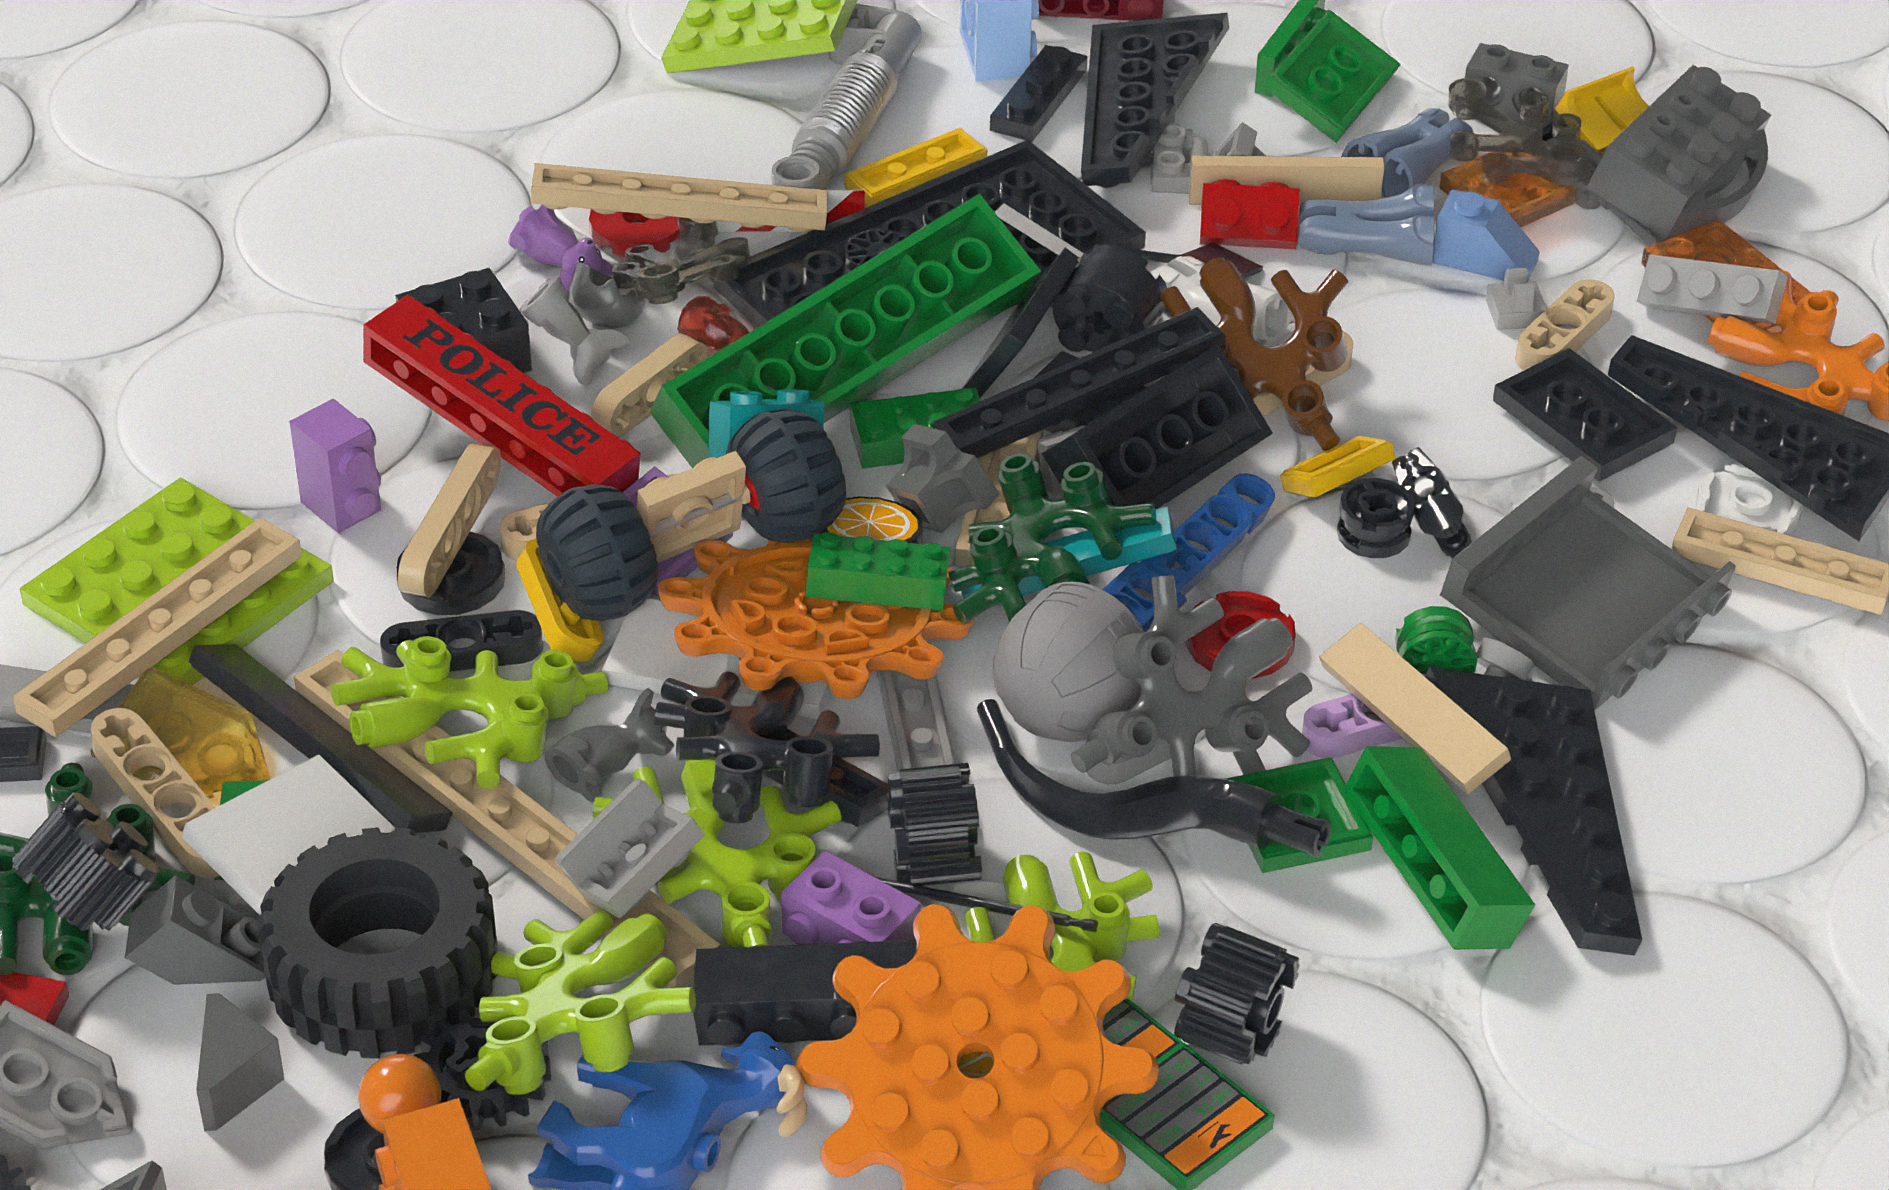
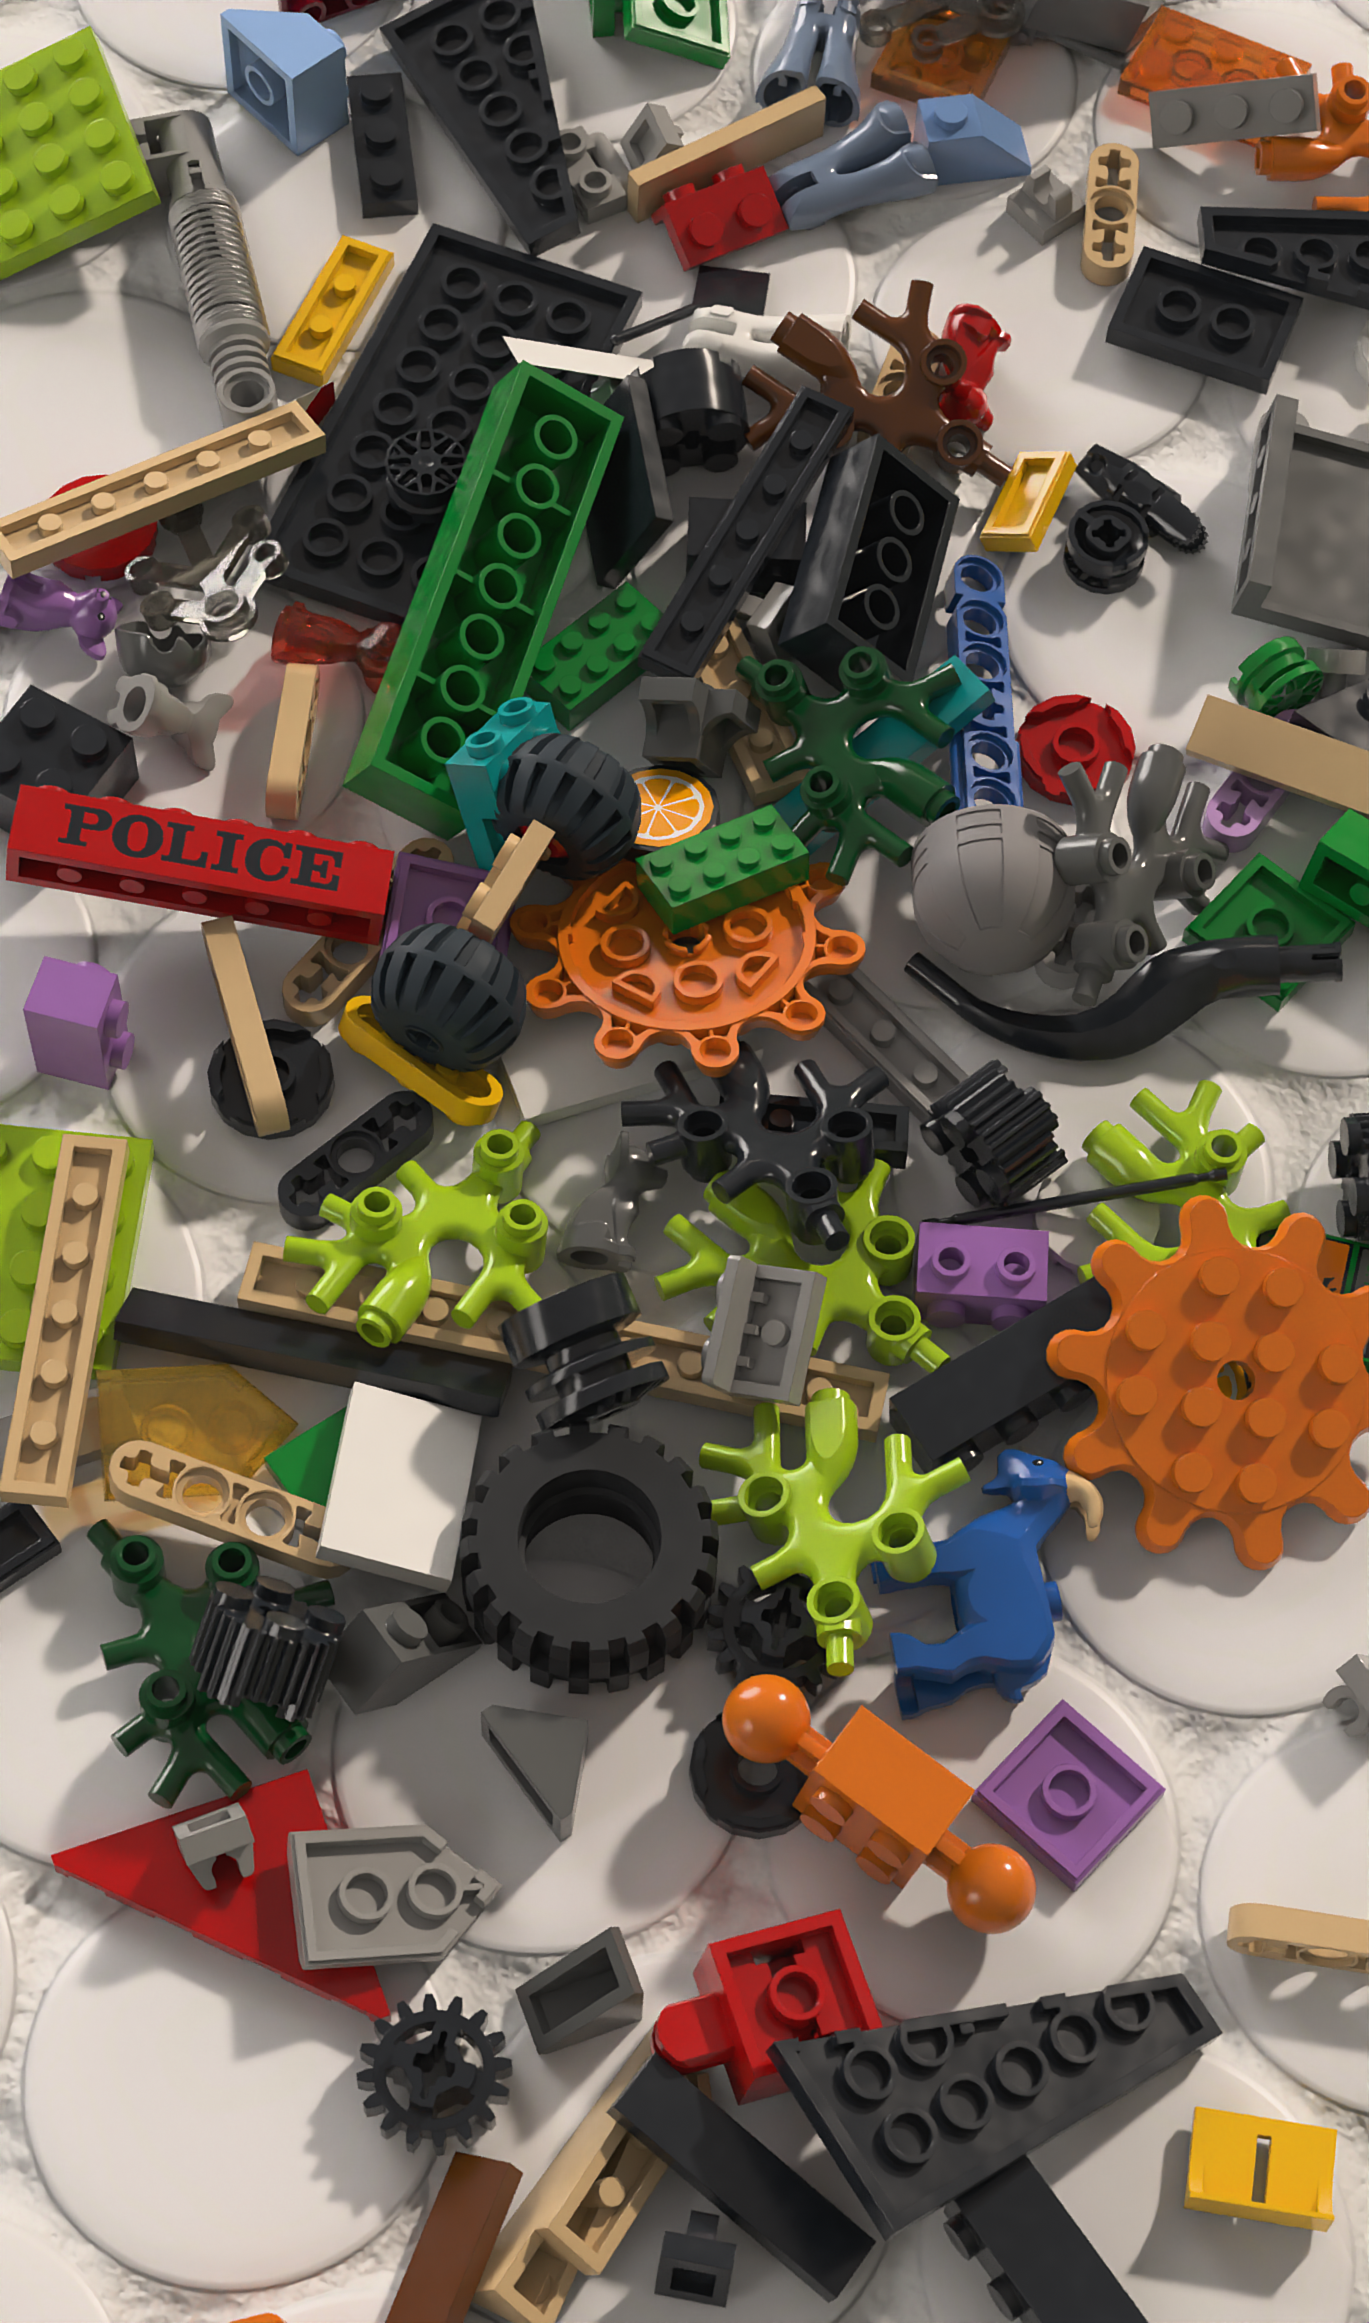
camera: 35 degrees left, 20 degrees up
(484, 793) = (583, 1352): none -> black wheel
(1371, 354) = (981, 340): none -> red animal

